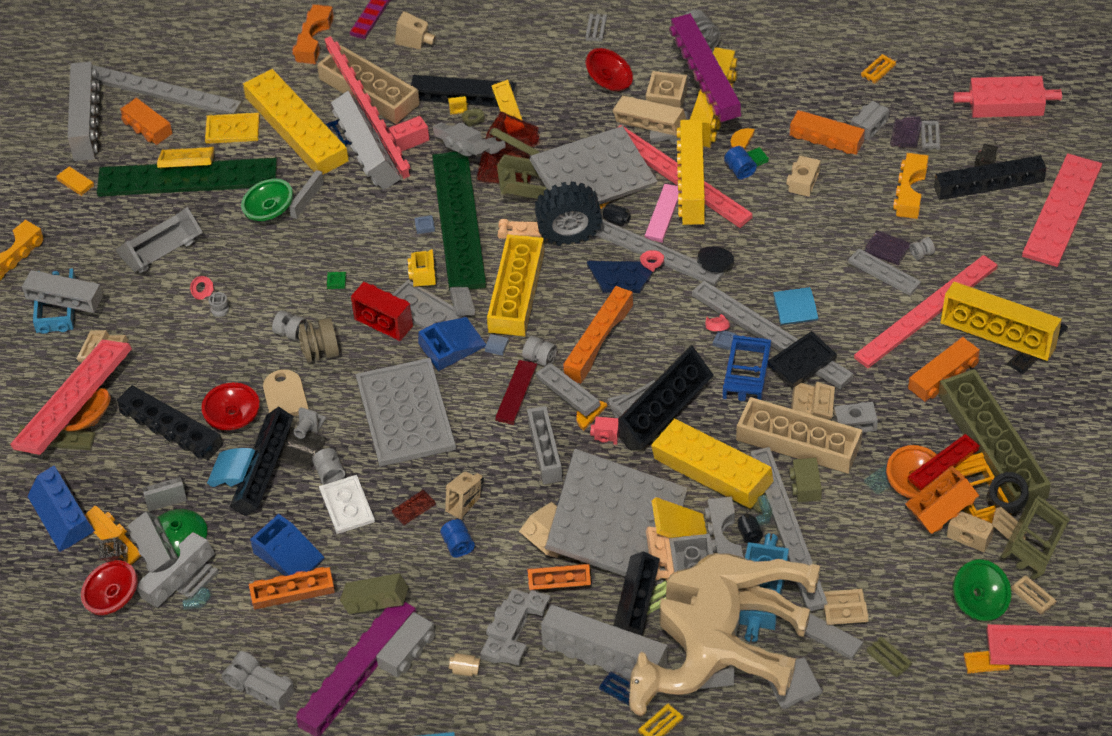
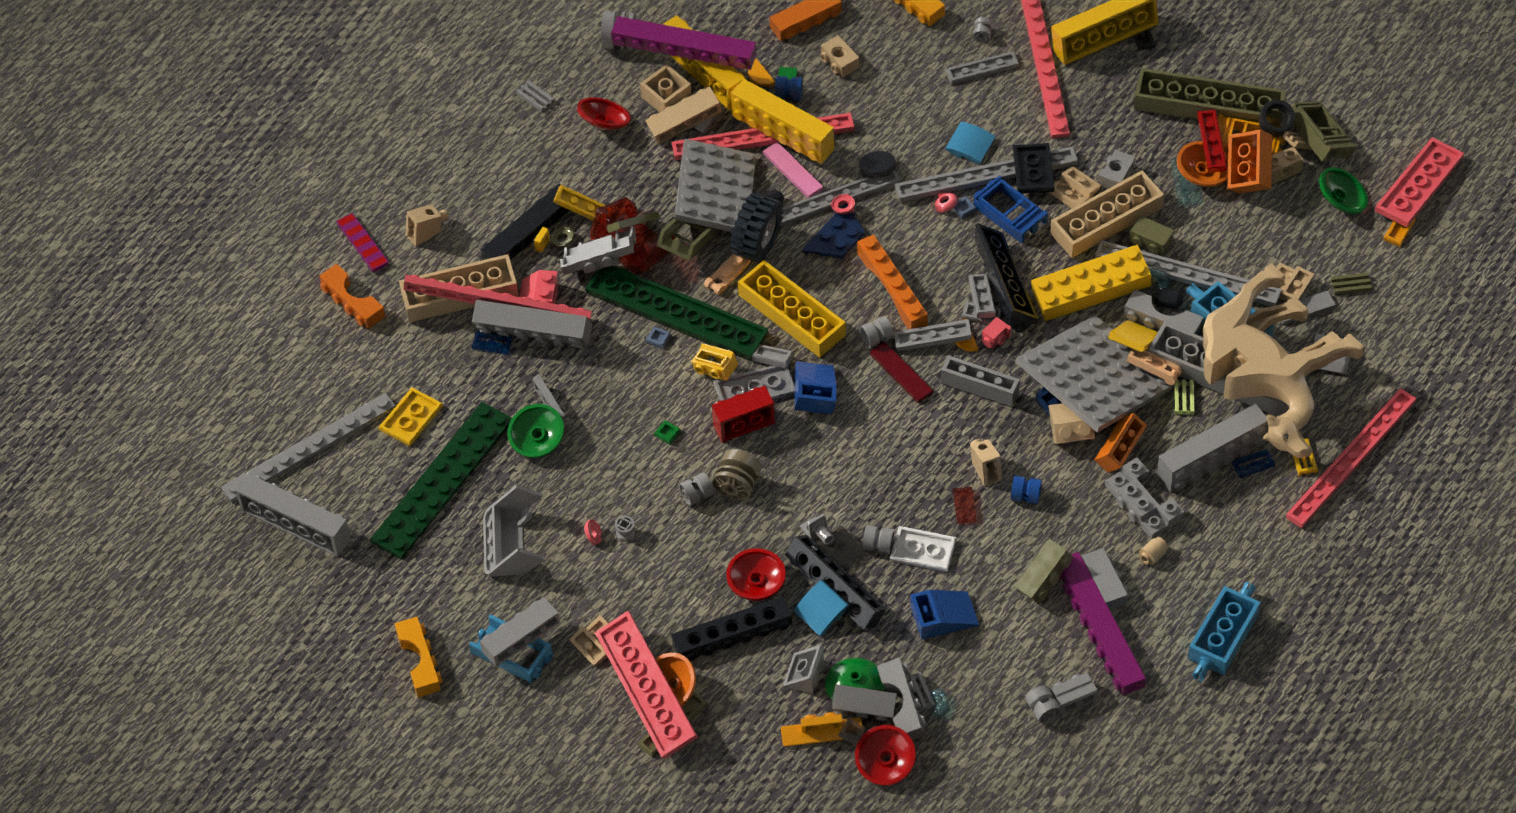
camera: 55 degrees left, 5 degrees up
(59, 509) = (764, 754): blue slope -> none
(75, 181) = (367, 566): light orange tile -> none
(146, 121) = (345, 475): orange brick -> none
(186, 157) = (422, 467): yellow tile -> none
(285, 394) = (767, 532): tan tile -> none
(291, 588) = (989, 626): orange brick -> none
(295, 122) = (453, 365): yellow brick -> none
(405, 412) = (859, 458): light grey plate -> none
(496, 344) = (838, 359): sand blue tile -> none
(636, 592) = (1183, 400): black brick -> none
(887, 247) = (961, 50): clear purple plate -> none
(947, 364) = (1115, 89): orange brick -> none
(1042, 606) = (1364, 169): tan tile -> none

